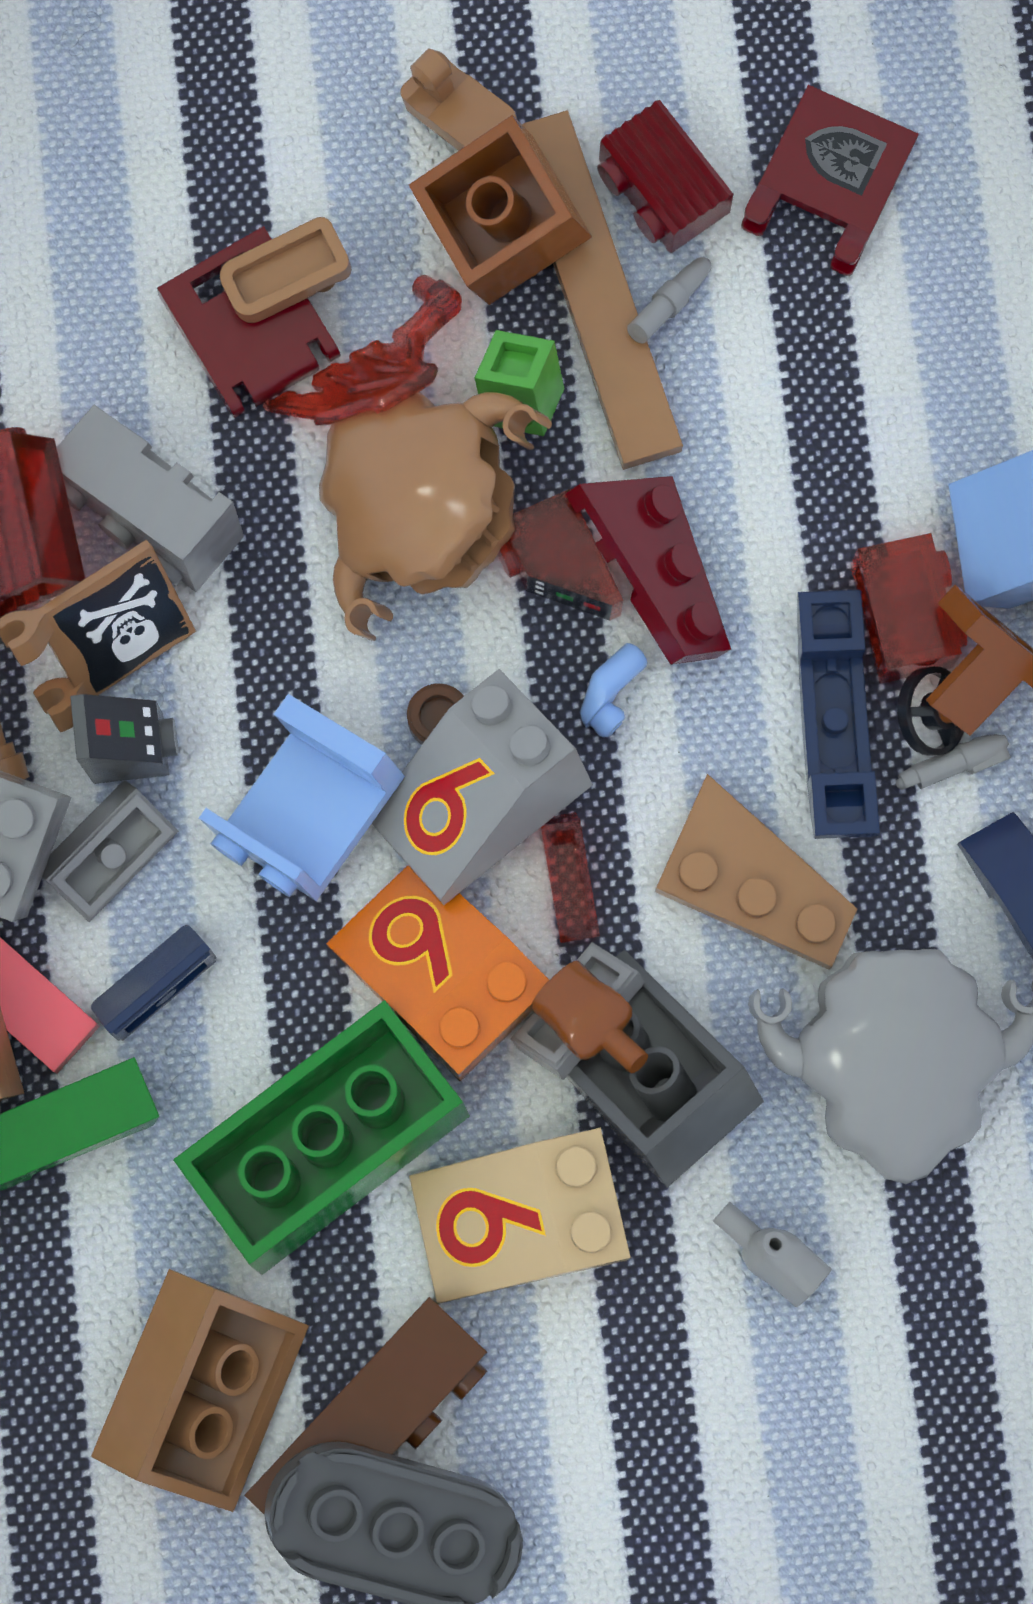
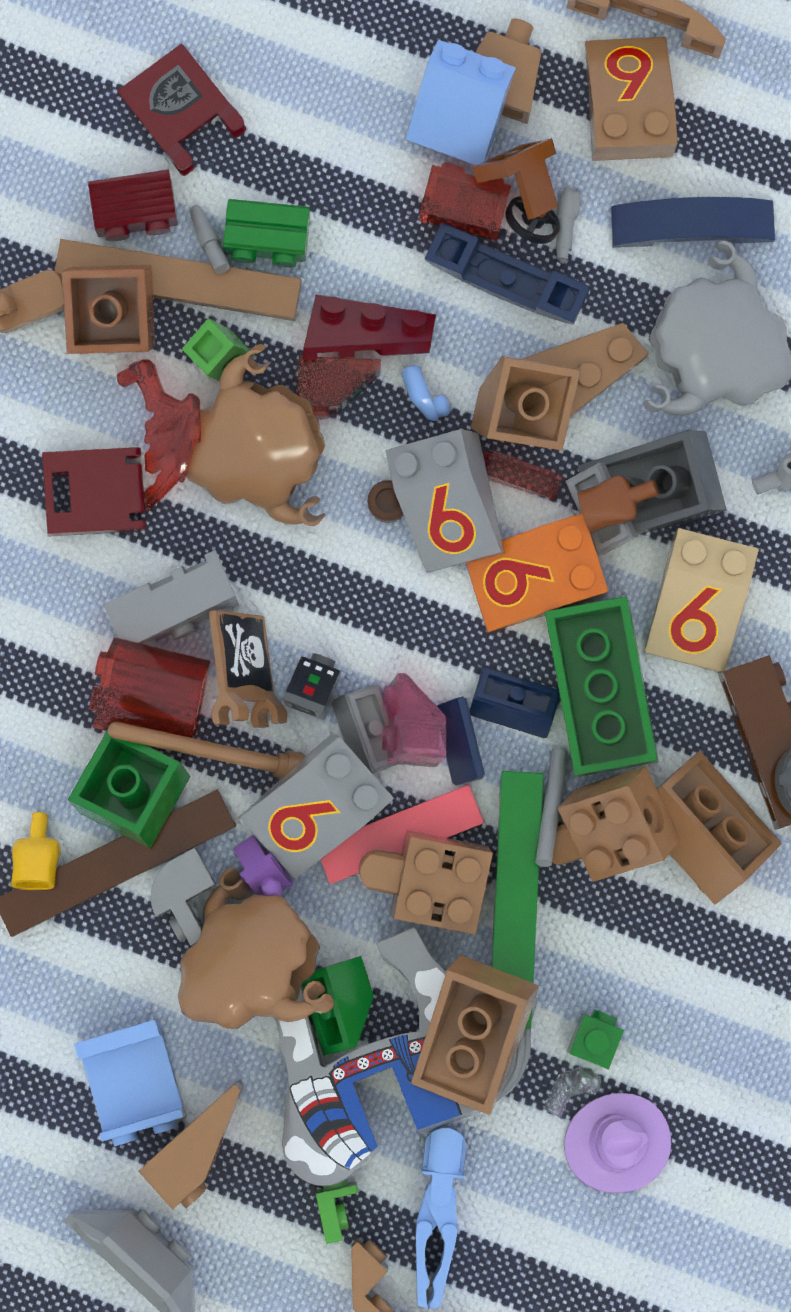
camera: 65 degrees left, 5 degrees up
(113, 1153) = (550, 812): none -> light grey bar
(127, 1252) = (615, 825): none -> medium nougat brick
(140, 907) = (414, 725): none -> clear pink slope
(245, 1028) = (514, 702): none -> dark blue slope
(285, 270) = (79, 452): medium nougat piece -> none
(307, 803) = (403, 601): light blue panel -> none
(667, 829) = (526, 403): none -> medium nougat slope
(721, 367) = (266, 232): none -> green brick

